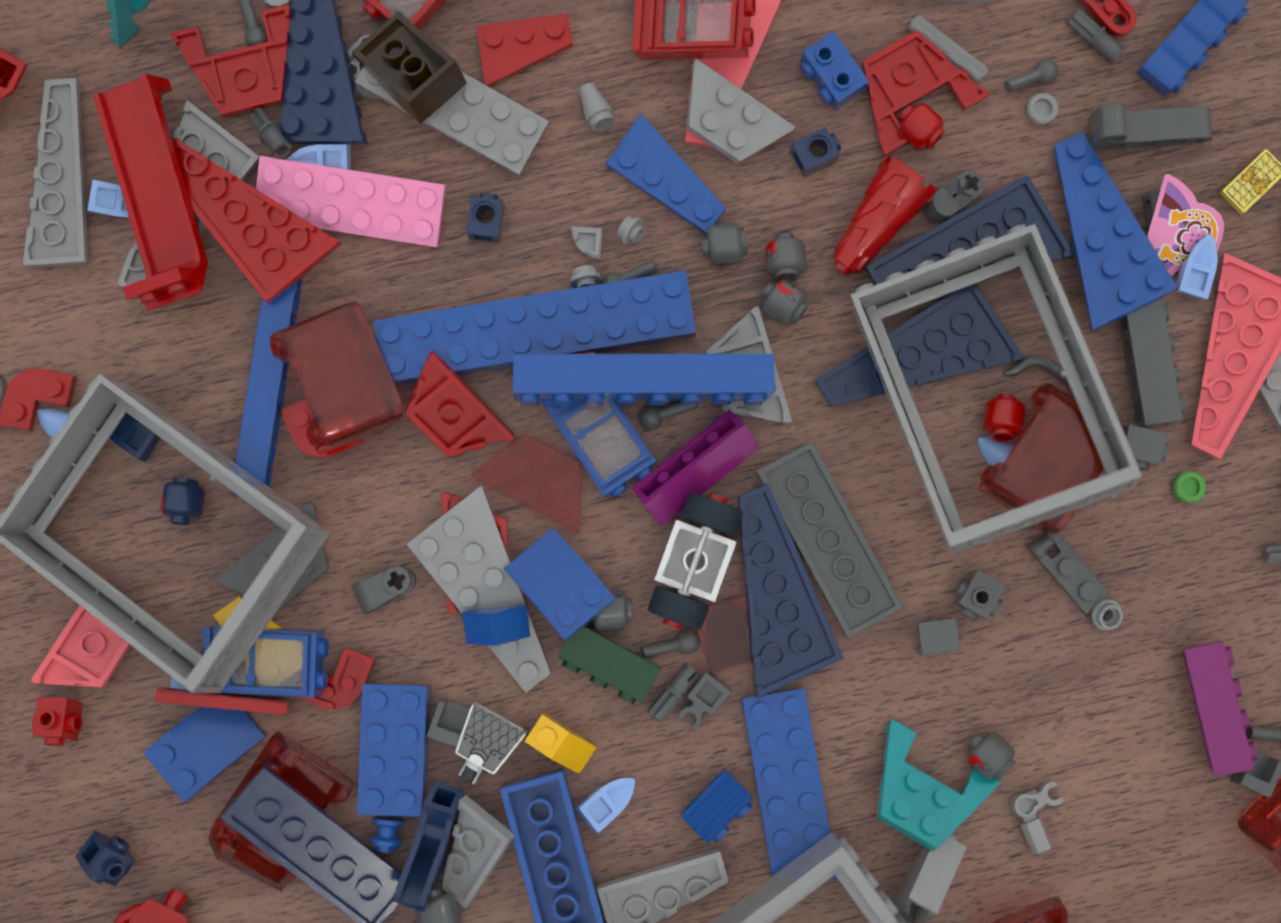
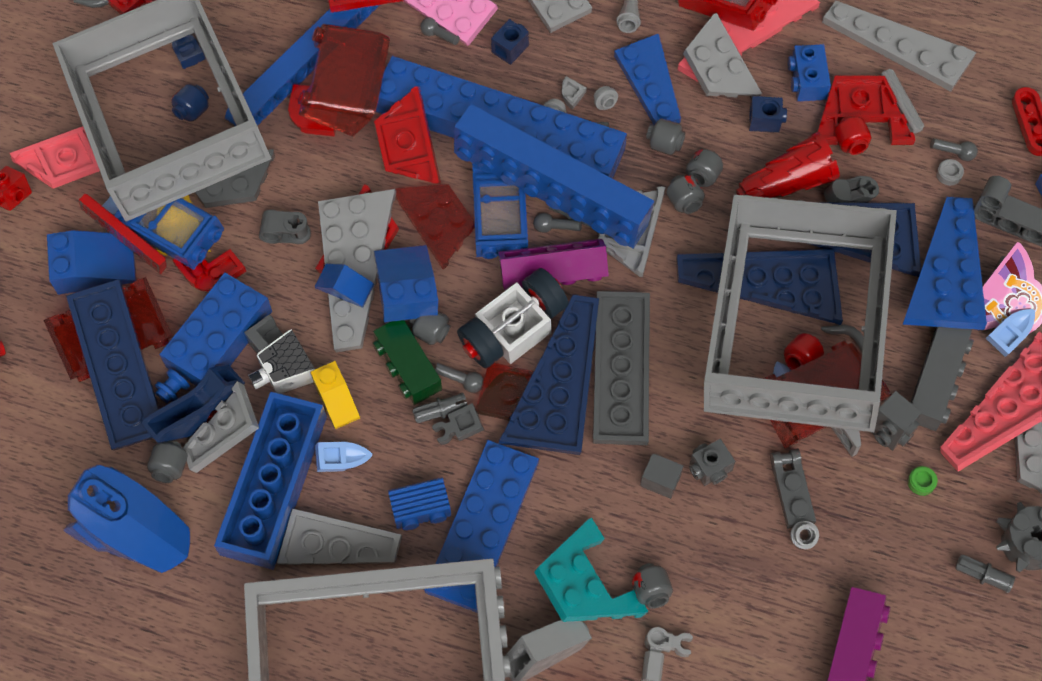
camera: 30 degrees right, 20 degrees down
(384, 248) = (430, 28): none -> dark grey bar
(1095, 35) = (1017, 145): dark grey axle -> none

